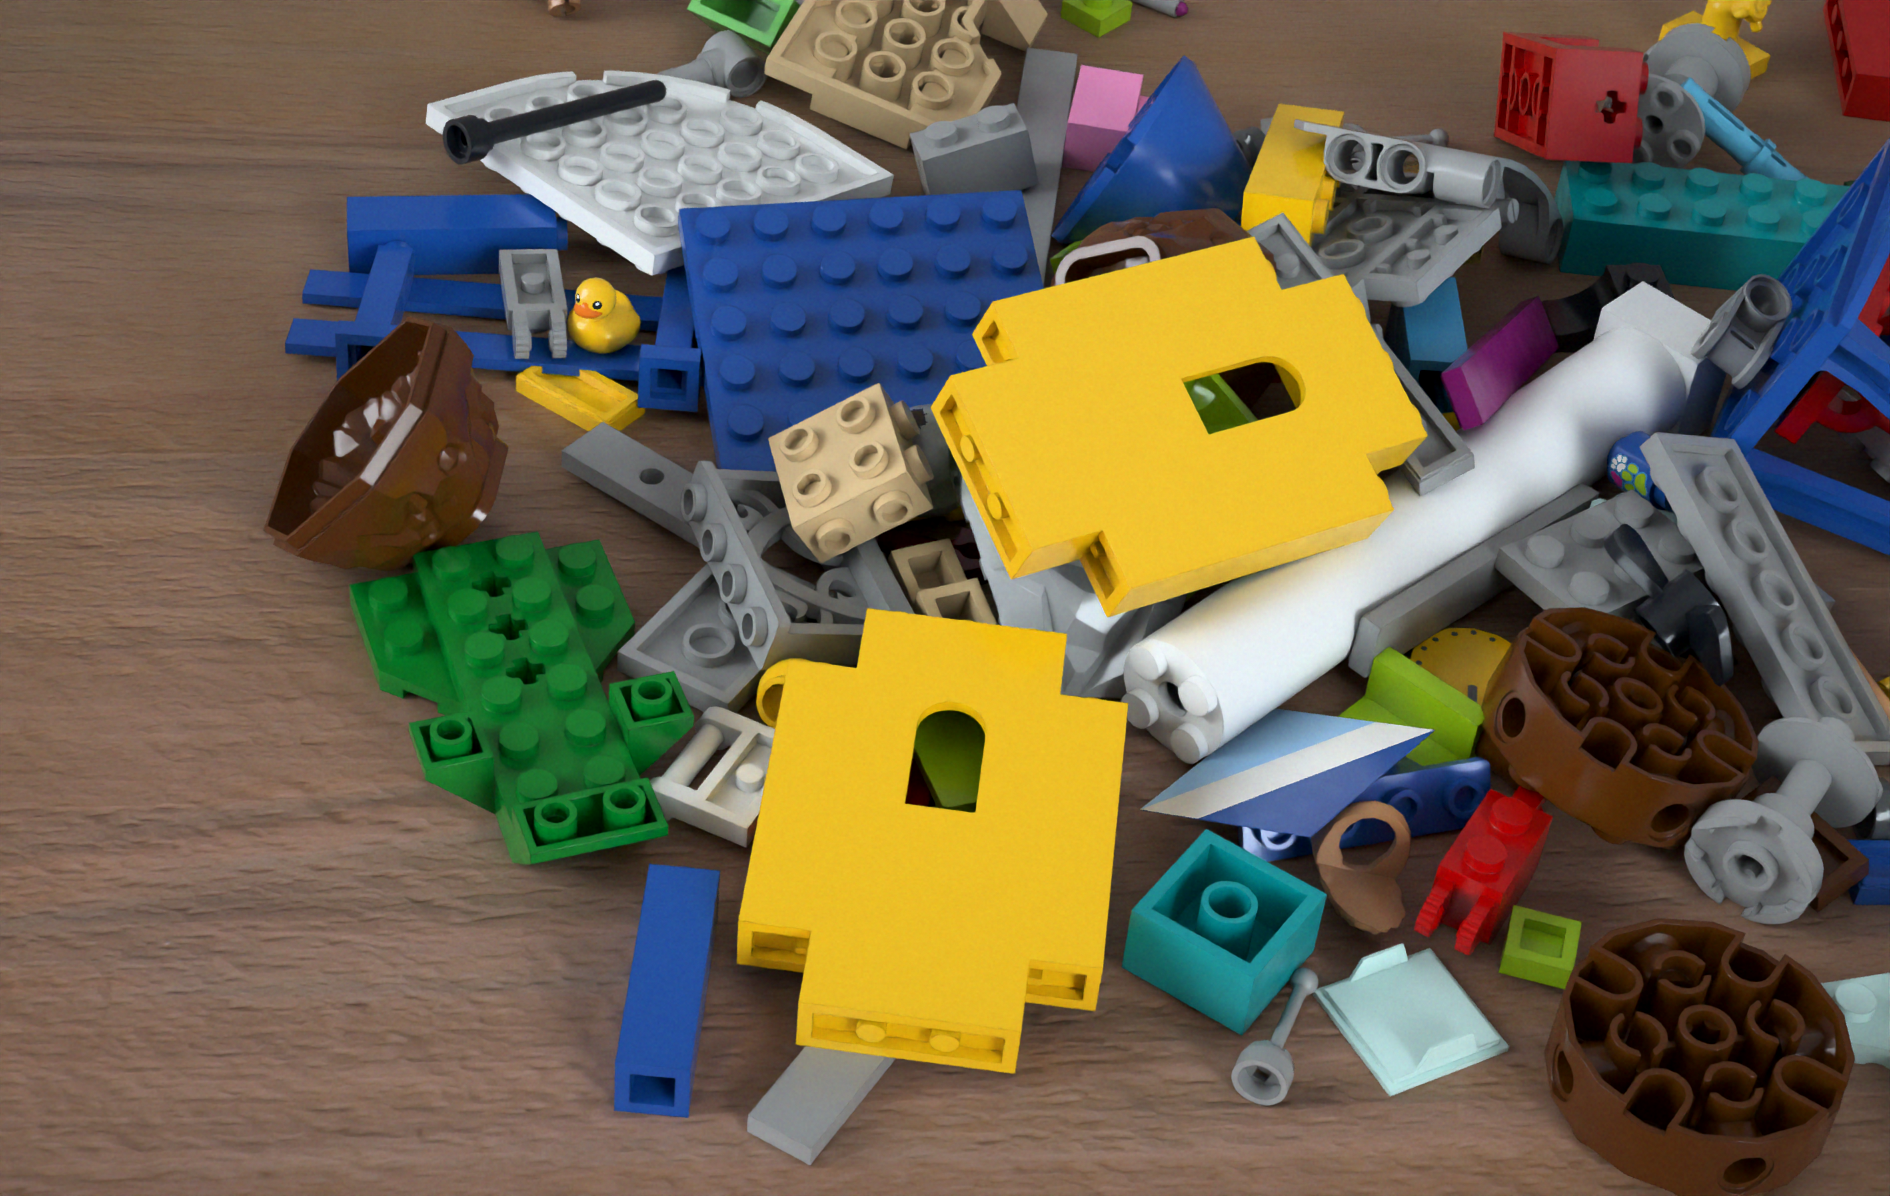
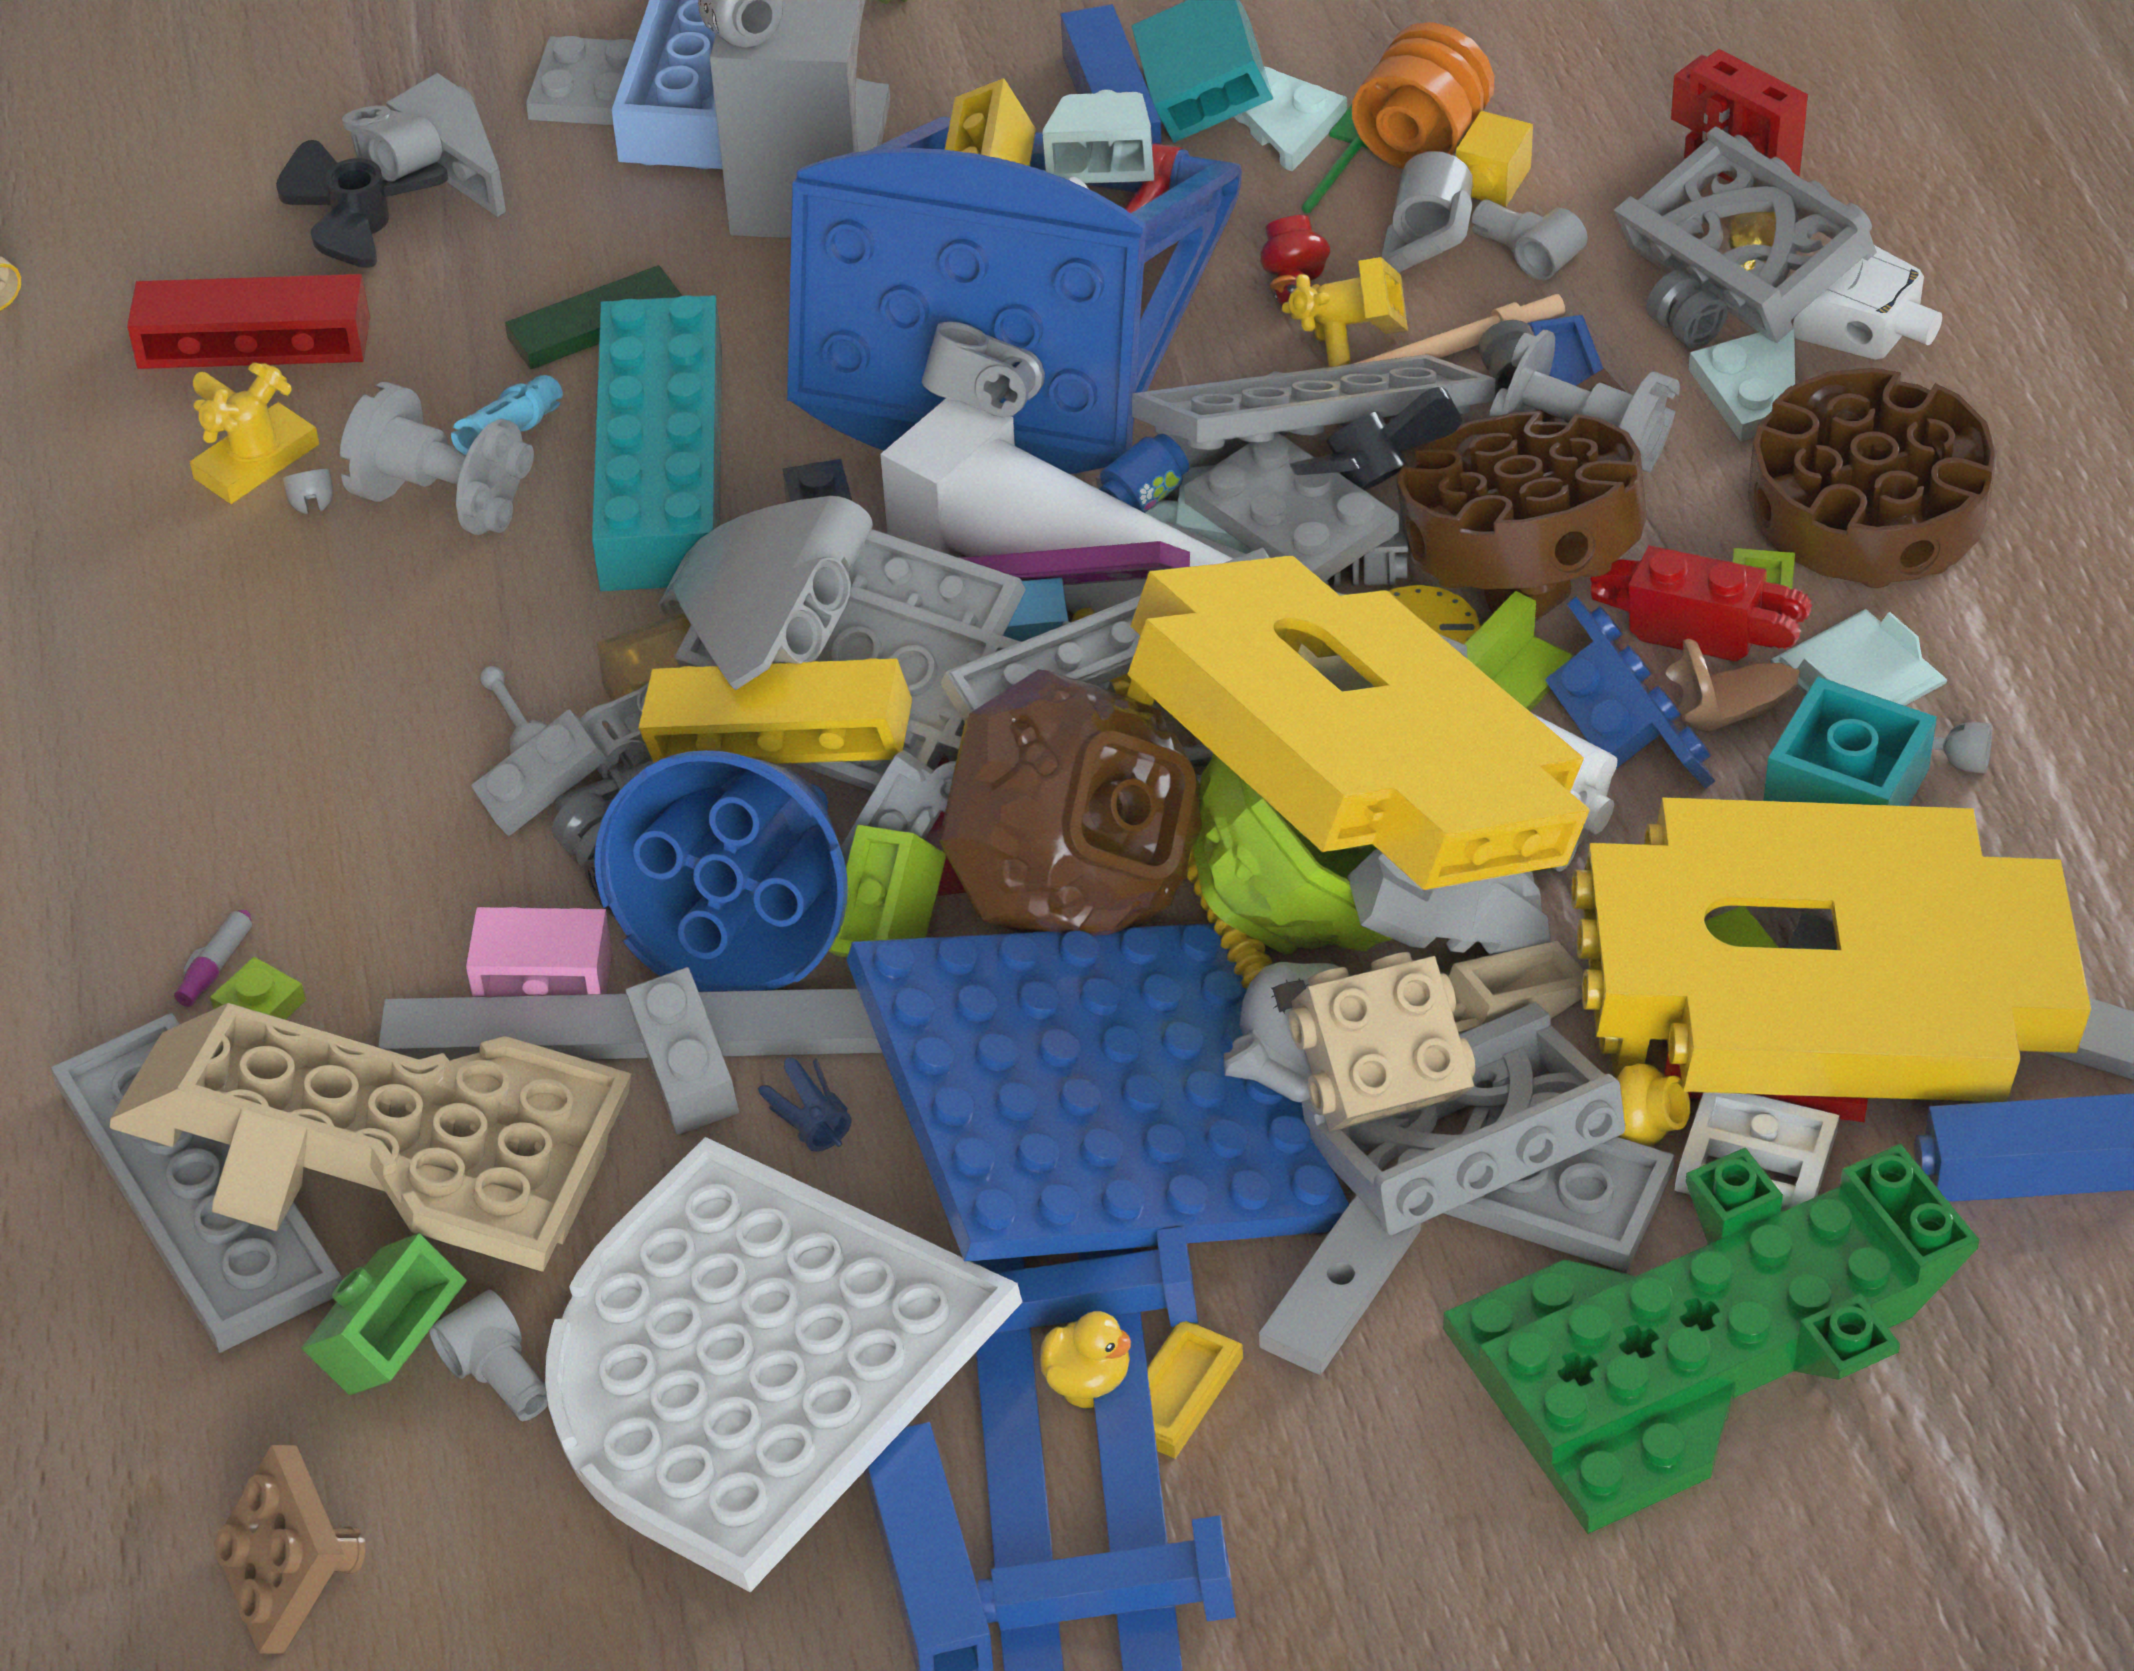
camera: 90 degrees left, 5 degrees up
(392, 457) = (1483, 1515): reddish brown rock -> none
(472, 137) = (837, 1492): black piece -> none
(534, 299) = (1059, 1432): light grey hinge -> none
(1288, 772) = (1659, 710): sticker -> none
(1552, 94) = (581, 504): red plate -> none

